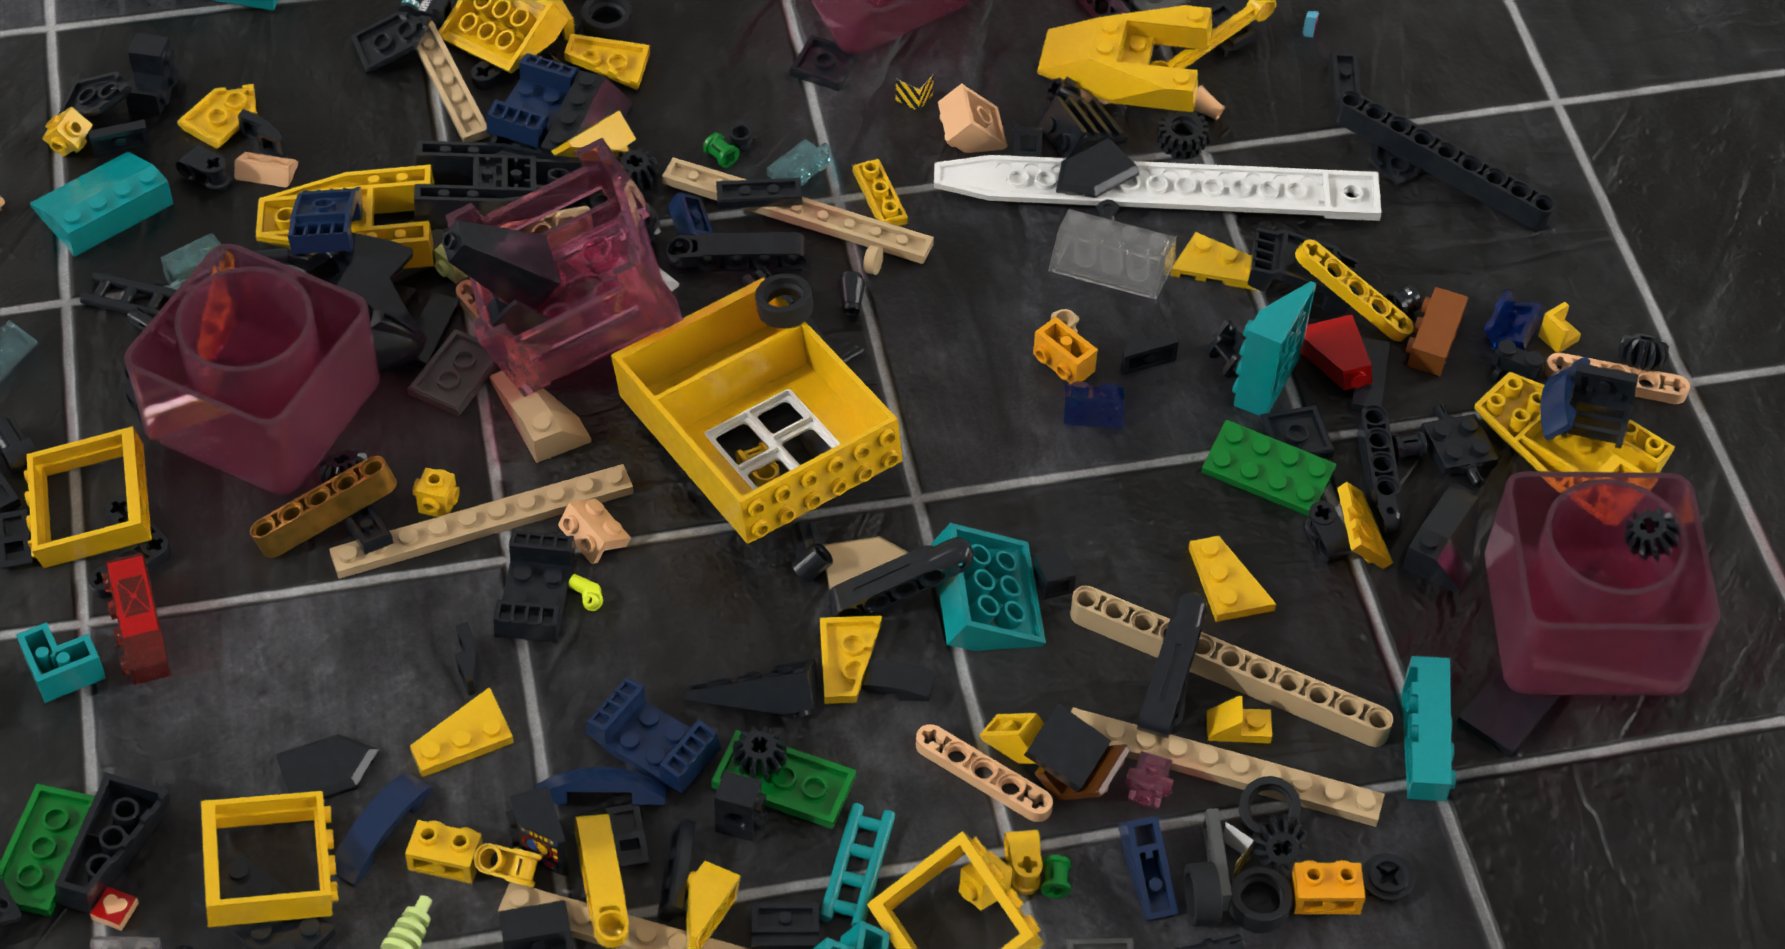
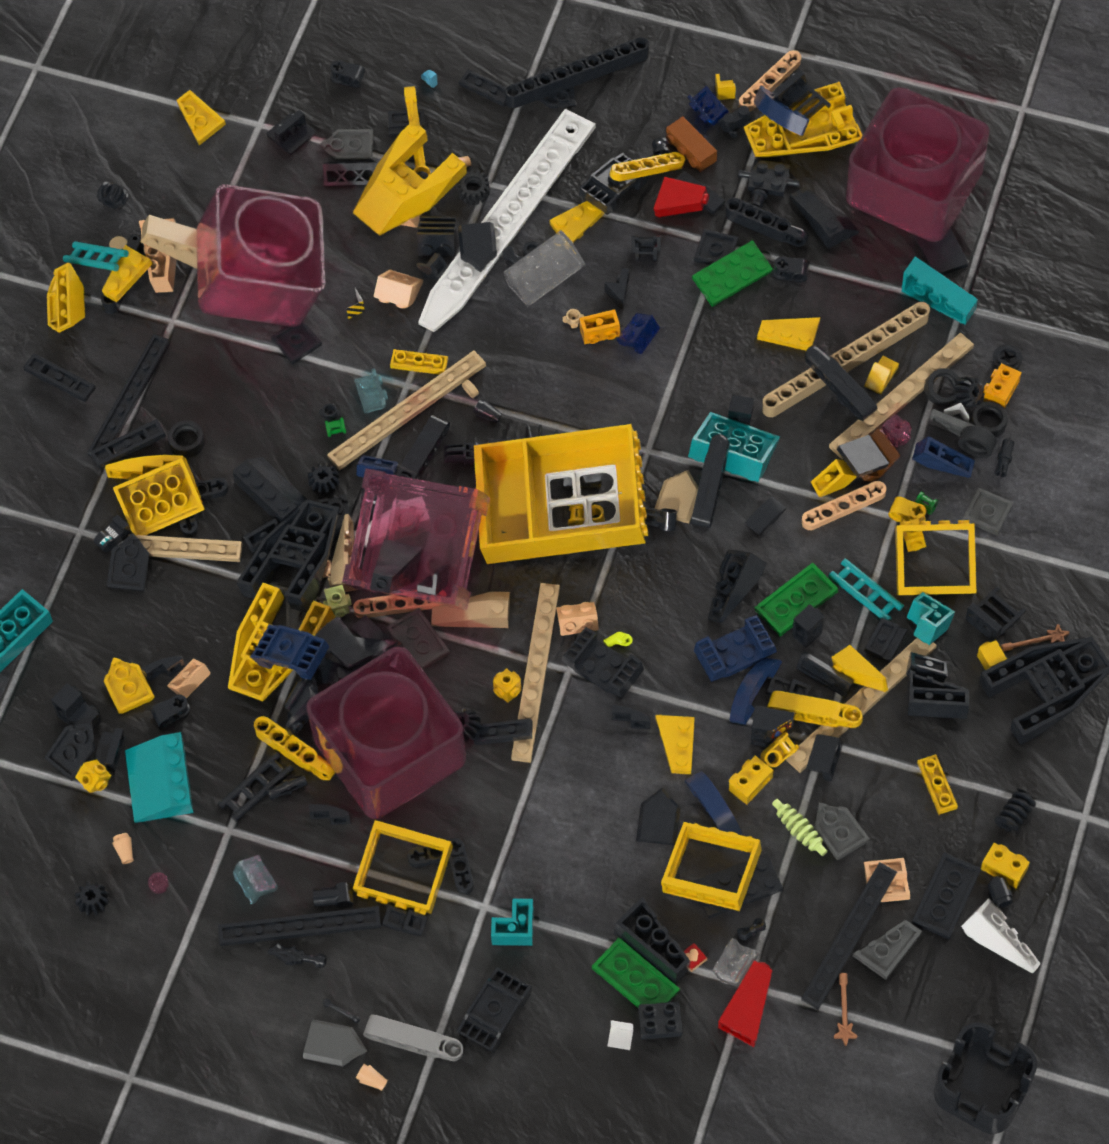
camera: 55 degrees left, 10 degrees up
(137, 619) = (508, 873): clear red brick -> none
(183, 261) = (251, 743): clear light blue bracket -> none
(323, 506) = (484, 736): pearl gold beam -> none
(533, 101) = (237, 508): dark blue plate -> none
(609, 58) = (220, 452): yellow wing -> none
(613, 131) = (294, 485): yellow slope -> none
(759, 193) = (386, 422): black tile -> none
(759, 753) = (782, 600): black gear -> none
(788, 315) = (500, 429): black tyre -> none
(846, 655) = (731, 532): yellow wing -> none
(1062, 88) = (411, 229): black gear -> none
(1272, 350) = (677, 226): teal slope -> none
(1361, 527) = (796, 251): yellow wing -> none
(1643, 352) = (766, 58): black gear -> none
(1652, 534) = (931, 127): black gear -> none

